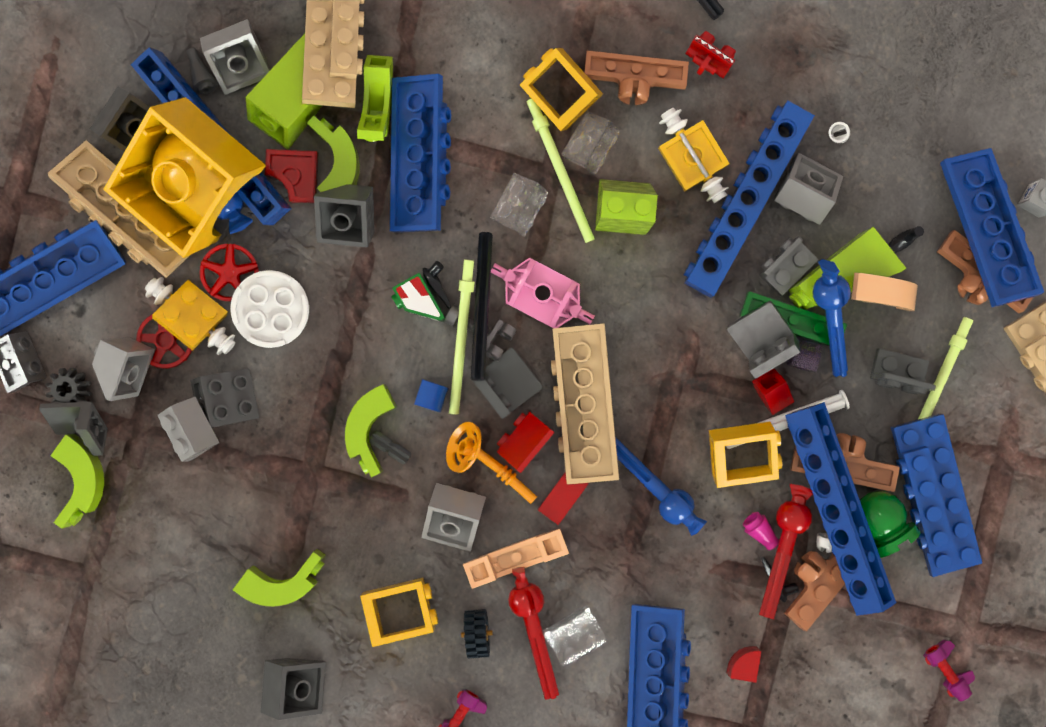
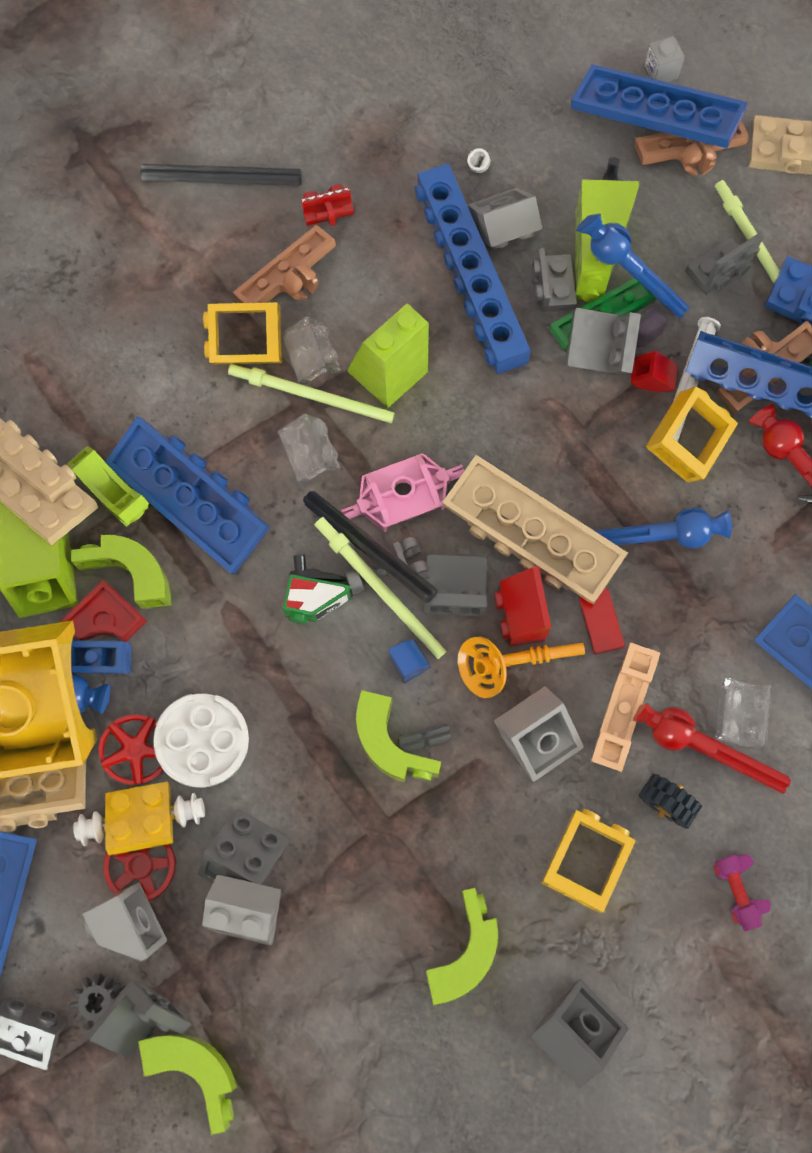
camera: 45 degrees left, 15 degrees down
(345, 215) = (181, 596): dark grey slope -> none
(693, 155) = (396, 280): yellow plate -> none
(760, 529) = (771, 477): dark pink cone -> none
(884, 291) = (641, 210): light nougat slope -> none

